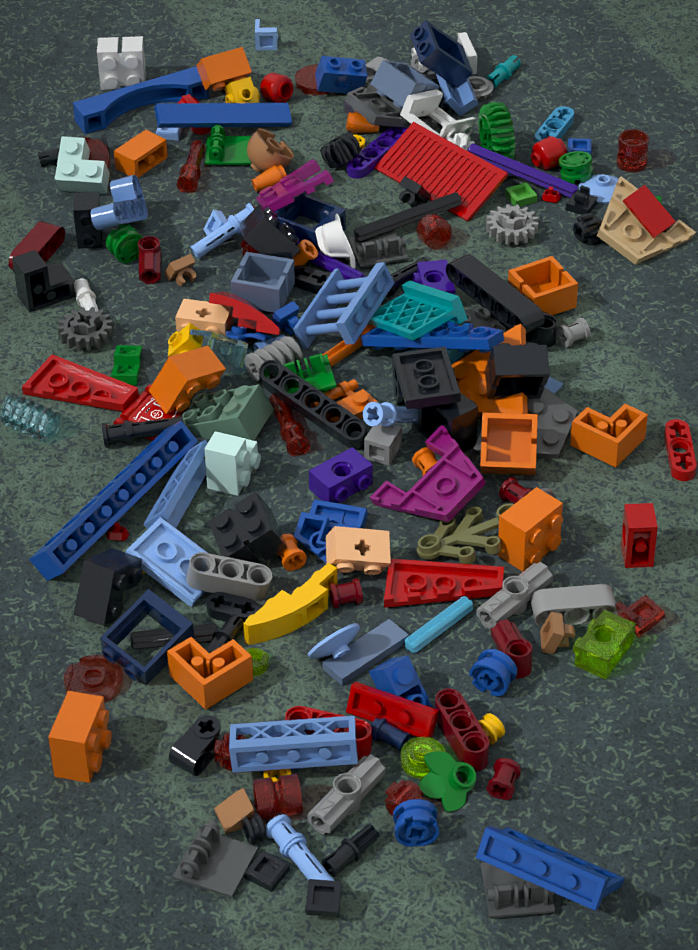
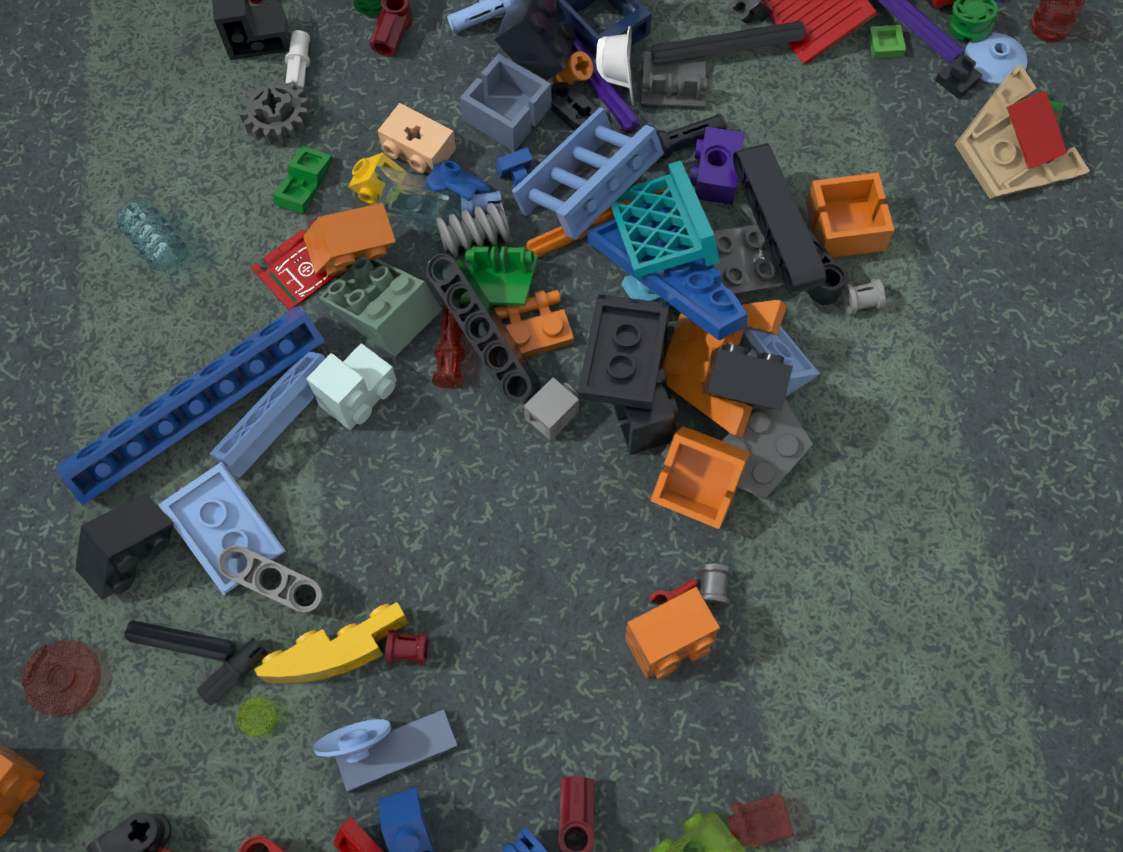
camera: 20 degrees right, 25 degrees up
(80, 385) = (231, 196): red wing -> none
(117, 533) = (185, 448): red rock -> none
(130, 431) = (258, 293): black pin -> none
(162, 613) = (165, 631): dark blue window -> none
(180, 268) = (422, 47): medium nougat tile -> none
(210, 675) = (179, 736): orange brick -> none
(231, 606) = (260, 628): black beam -> none
(248, 314) = (460, 147): red slope -> none
(248, 523) = (319, 519): black piece -> none
(292, 557) = (366, 554): orange bush -> none
(321, 519) = (431, 543): blue slope -> none
(341, 476) = (488, 435): dark purple brick -> none
(358, 550) = (429, 579): light nougat brick -> none
(388, 414) = (559, 381): light blue pin -> none
(424, 460) = (594, 464): orange bush -> none
(430, 582) = (524, 666): red wing -> none
(434, 231) = (751, 75): clear red head -> none
(436, 544) = (590, 602): olive plant -> none
(438, 624) = (503, 737): medium azure axle -> none
(442, 489) = (593, 518): magenta wing -> none
(512, 224) = (854, 91): light grey gear -> none
(514, 595) = (636, 716): light grey piece -> none
(515, 489) = (685, 552): dark red bush -> none
(551, 195) = (924, 53): red rock -> none
(555, 634) = (638, 814): medium nougat tile -> none
(575, 603) = (683, 772): light grey beam -> none
(587, 228) = (948, 125): black gear -> none
(608, 437) = (841, 502): orange brick -> none
(639, 535) = (810, 692): red brick -> none
(684, 442) = (911, 563): red beam -> none

